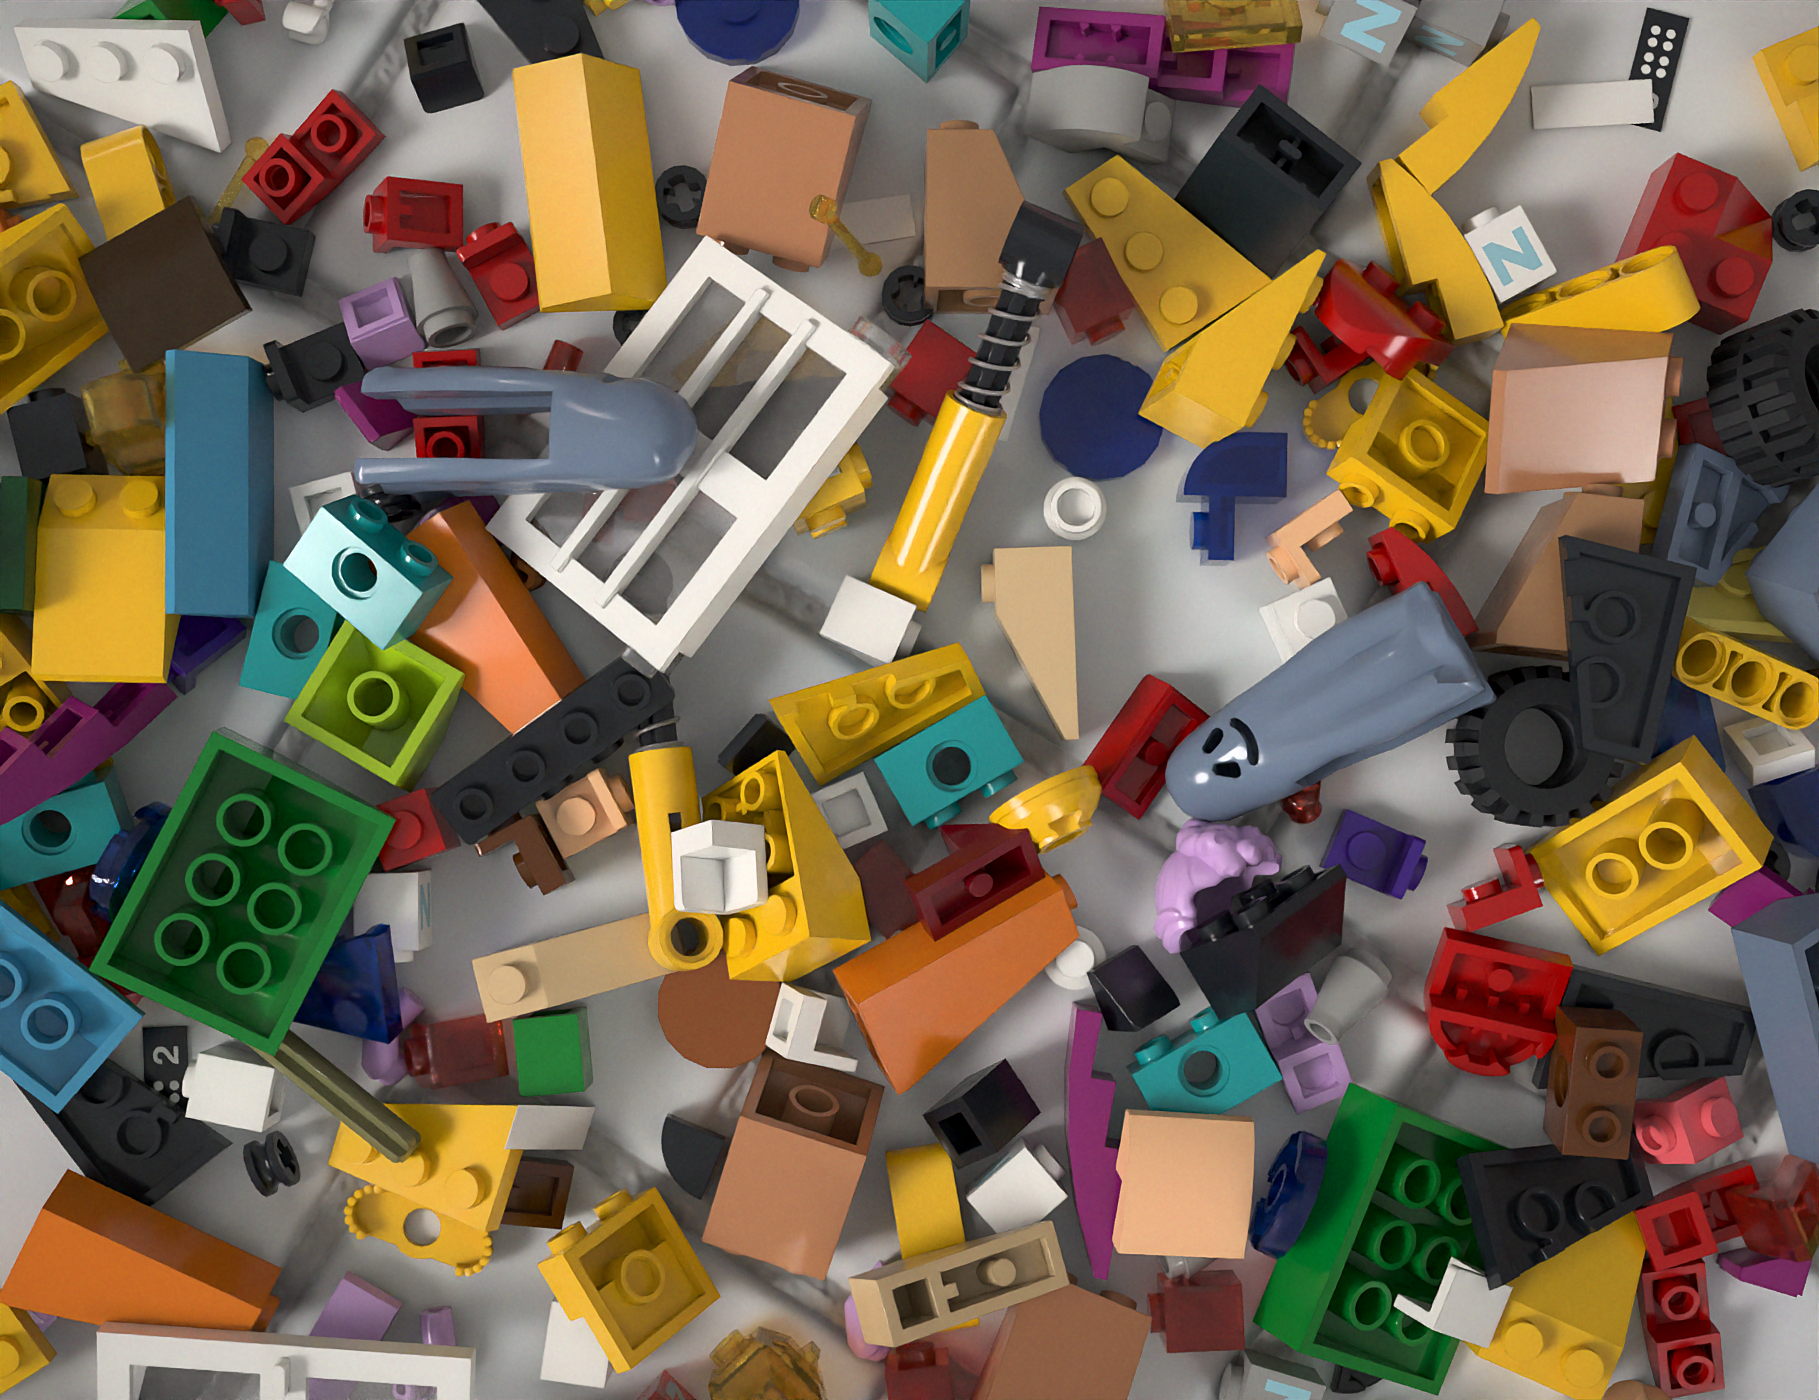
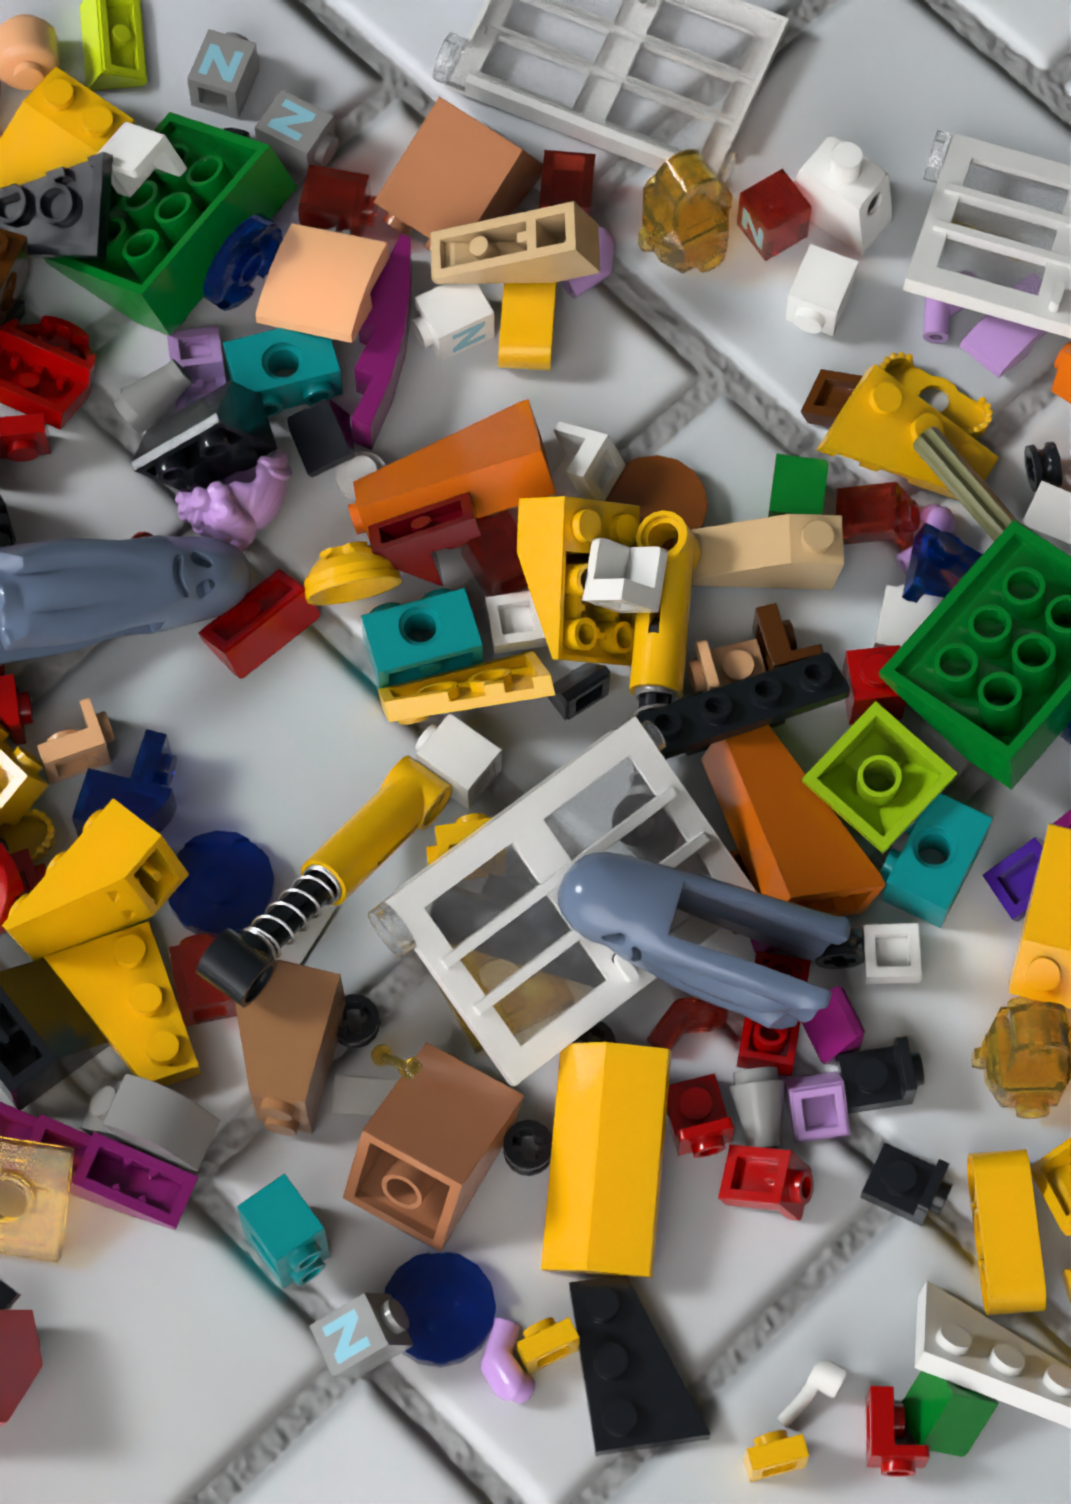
camera: 165 degrees left, 20 degrees down
(163, 284) = (990, 1147): dark brown slope -> none
(217, 484) = (978, 977): dark azure slope -> none
(253, 149) = (896, 1278): clear yellow hinge -> none
(313, 161) = (845, 1258): red slope -> none
(335, 567) = (860, 865): brick -> none
(443, 68) = (714, 1314): black slope -> none
(549, 1127) = (811, 436): white sticker -> none
(628, 1276) = (772, 317): yellow plate -> none
(690, 1153) = (705, 404): black tile -> none
(793, 1165) = (624, 369): nougat slope -> none
(934, 369) = (350, 945): red brick -> none
(981, 1114) = (465, 372): black brick -> none
(1037, 618) = (318, 739): tan slope -> none
(1074, 509) = (263, 815): white plate -> none
(1303, 617) = (99, 674): white brick -> none
(1376, 854) = (97, 496): dark purple bracket -> none

